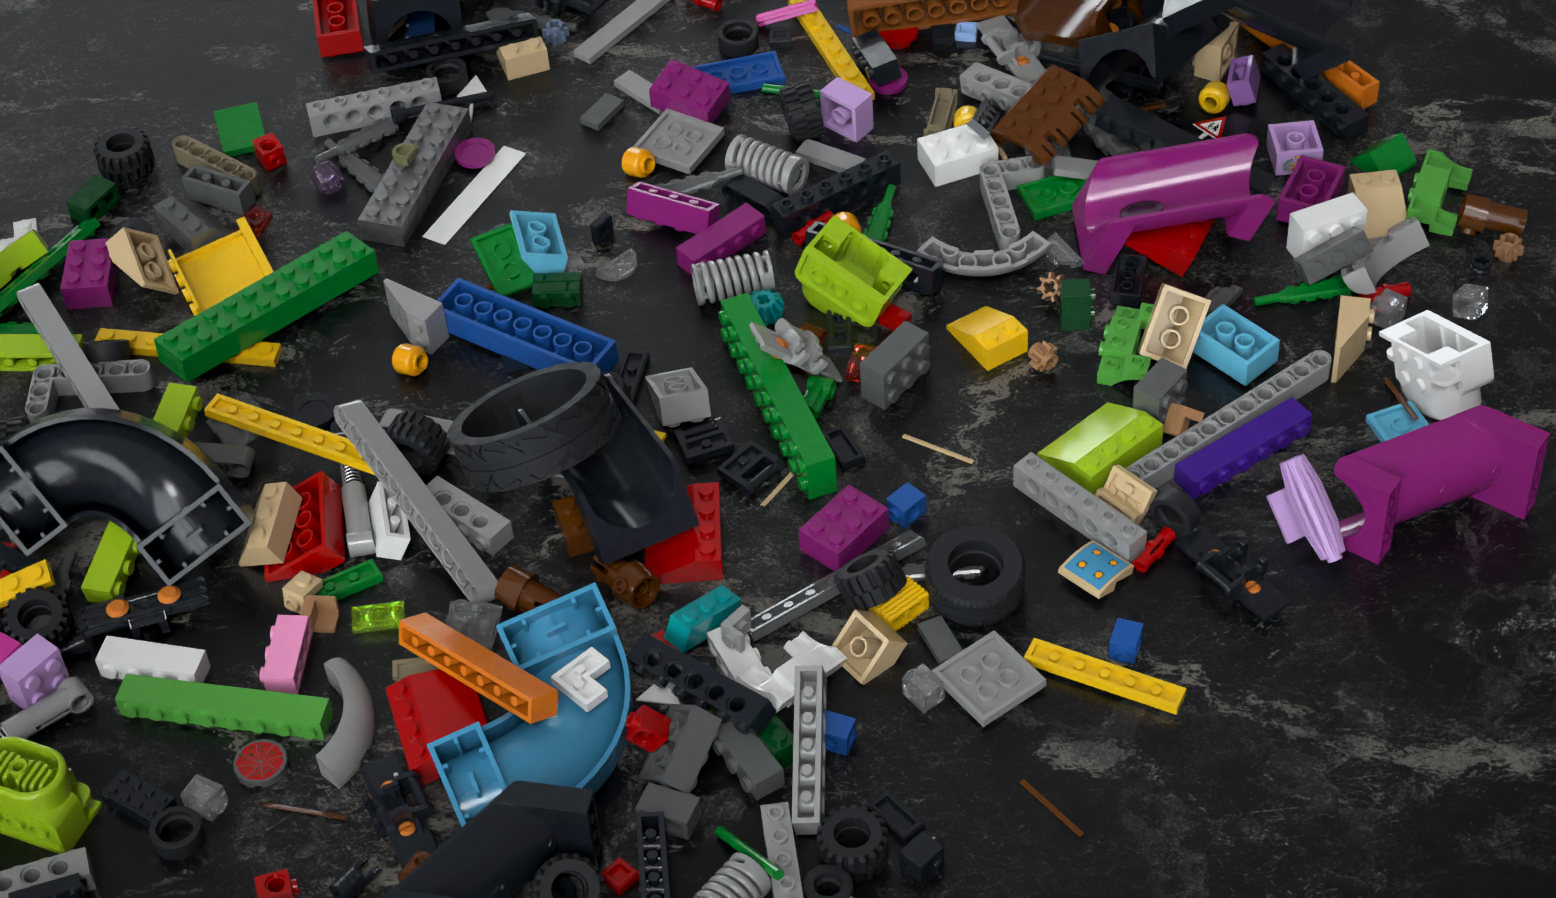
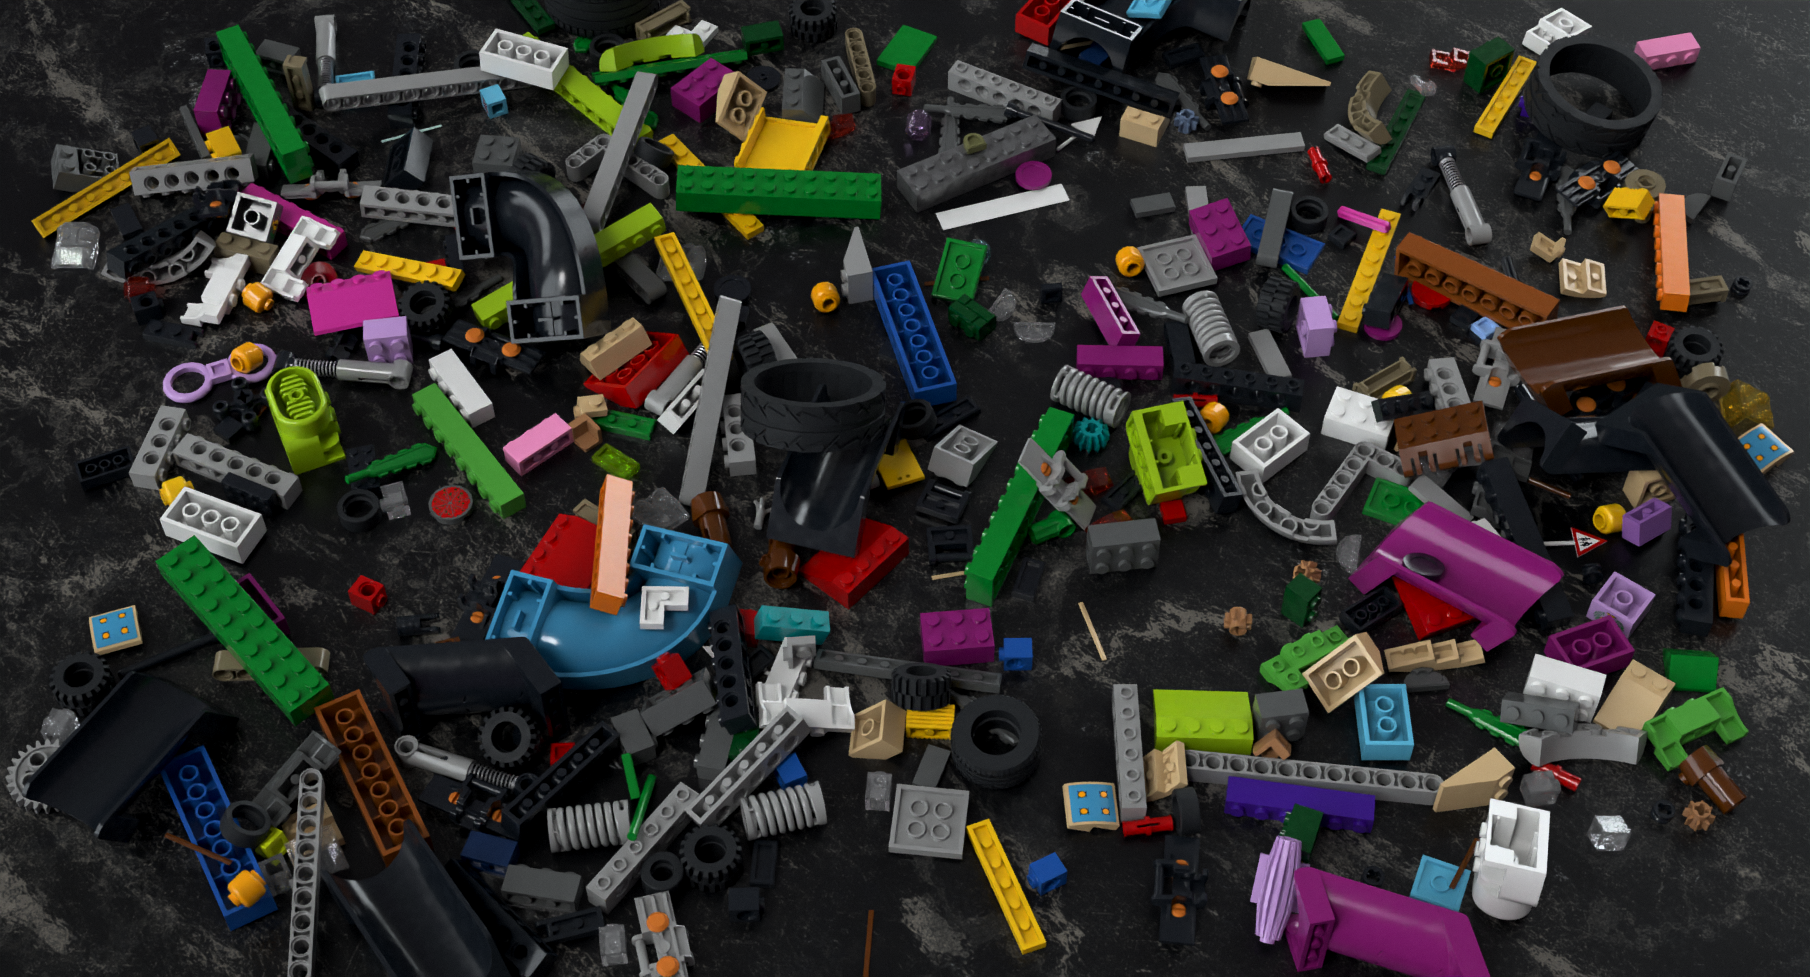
camera: 40 degrees right, 5 degrees up
(169, 759) = (405, 458): none -> green sword
(306, 811) = (444, 558): reddish brown piece -> none
(356, 729) = (527, 521): light grey brick -> none
(540, 241) = (990, 272): medium azure slope -> none
(558, 561) = (760, 513): none -> light grey bar
(707, 842) = (630, 776): none -> green tile
(727, 62) = (1274, 228): none -> dark grey beam
(869, 760) = (777, 802): none -> light grey piece
(914, 214) = (1270, 445): none -> white brick
(990, 336) = (1220, 576): yellow slope -> none
(1215, 269) = (1436, 656): none -> tan slope
(1267, 456) = (1303, 825): none -> dark green brick

